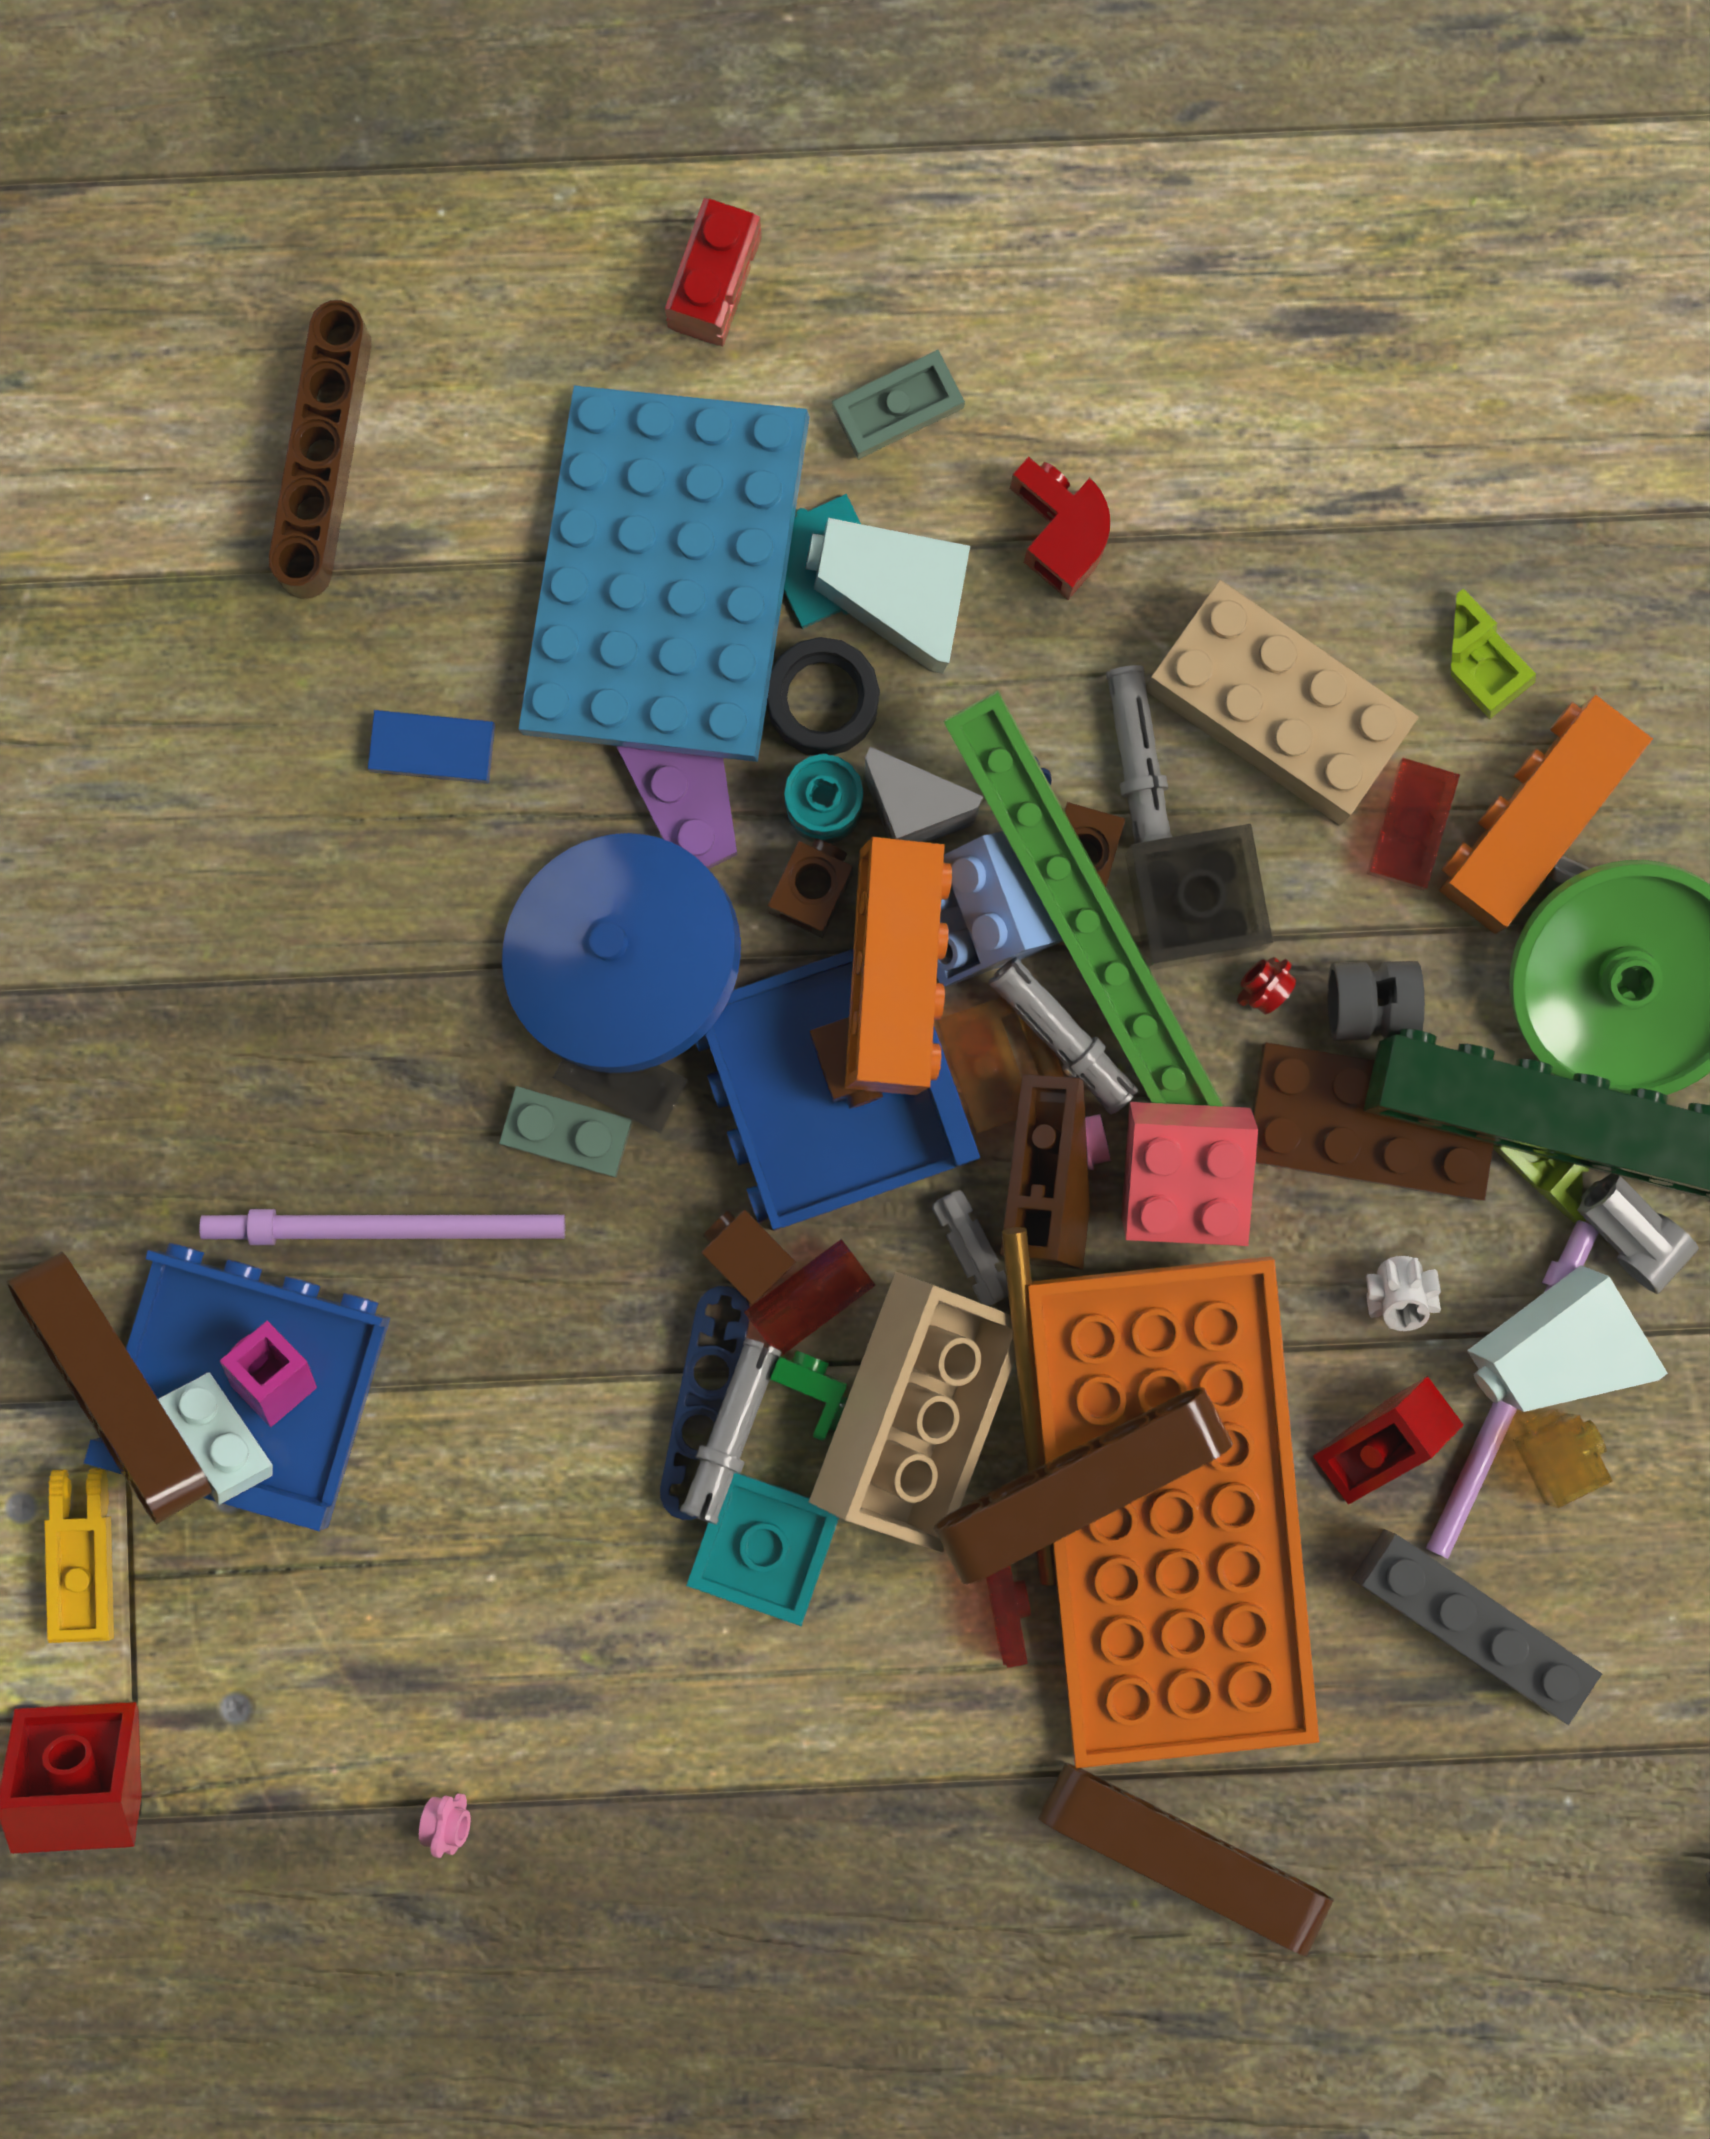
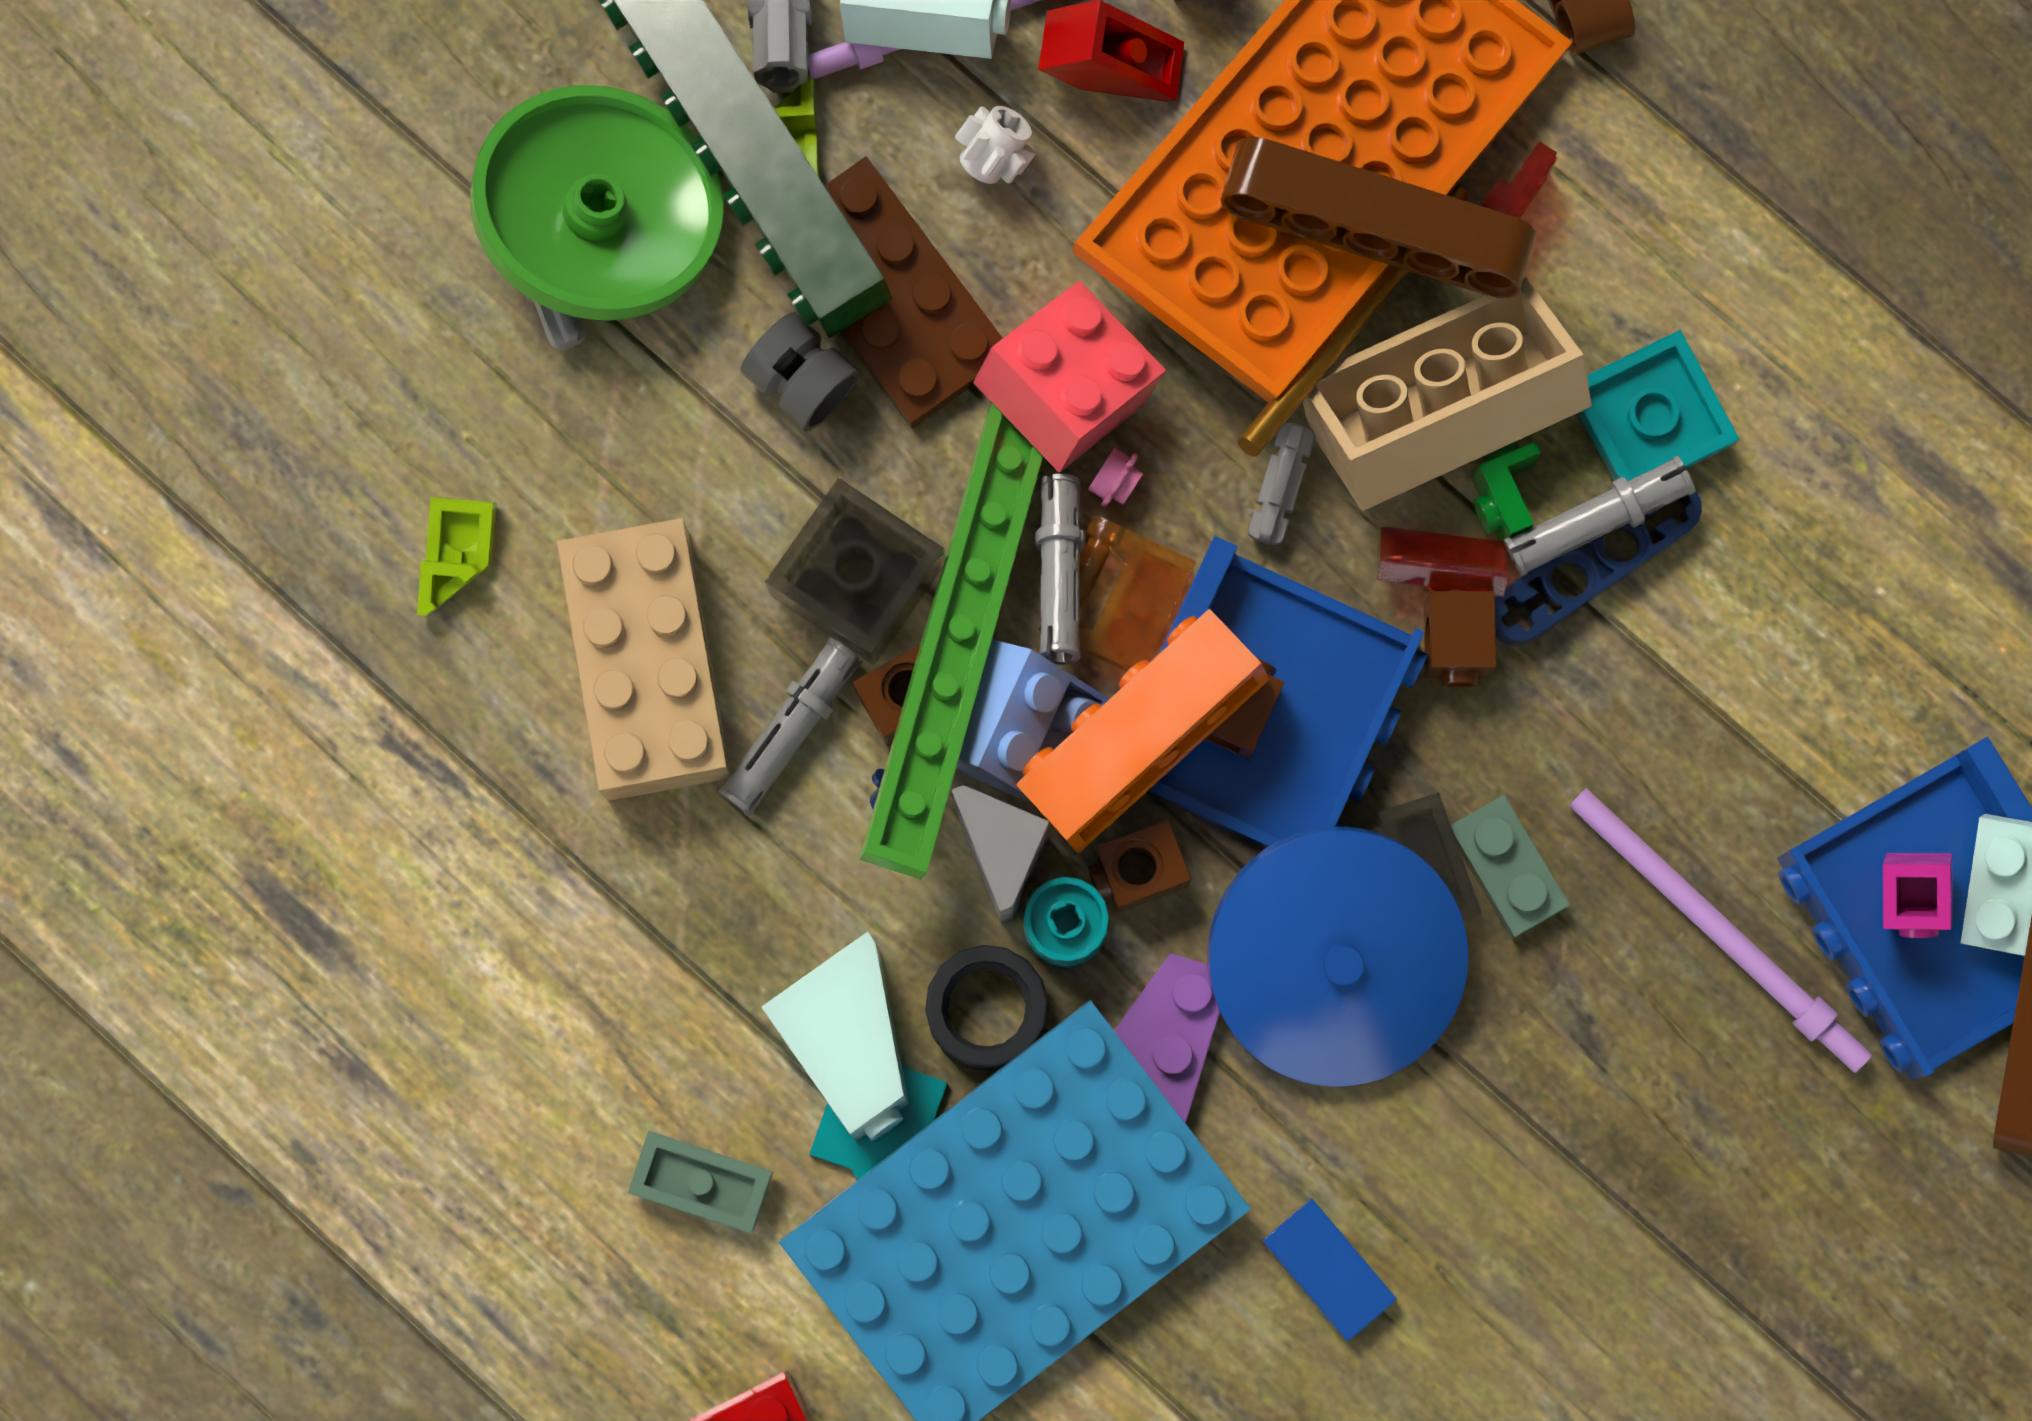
camera: 130 degrees left, 5 degrees down
(1050, 1171) = (1172, 475): reddish brown slope -> none
(1076, 529) = (666, 941): red brick -> none
(1267, 985) = (868, 462): red plate -> none
(1413, 824) = (636, 476): clear red plate -> none
(1544, 814) = (532, 389): orange brick -> none

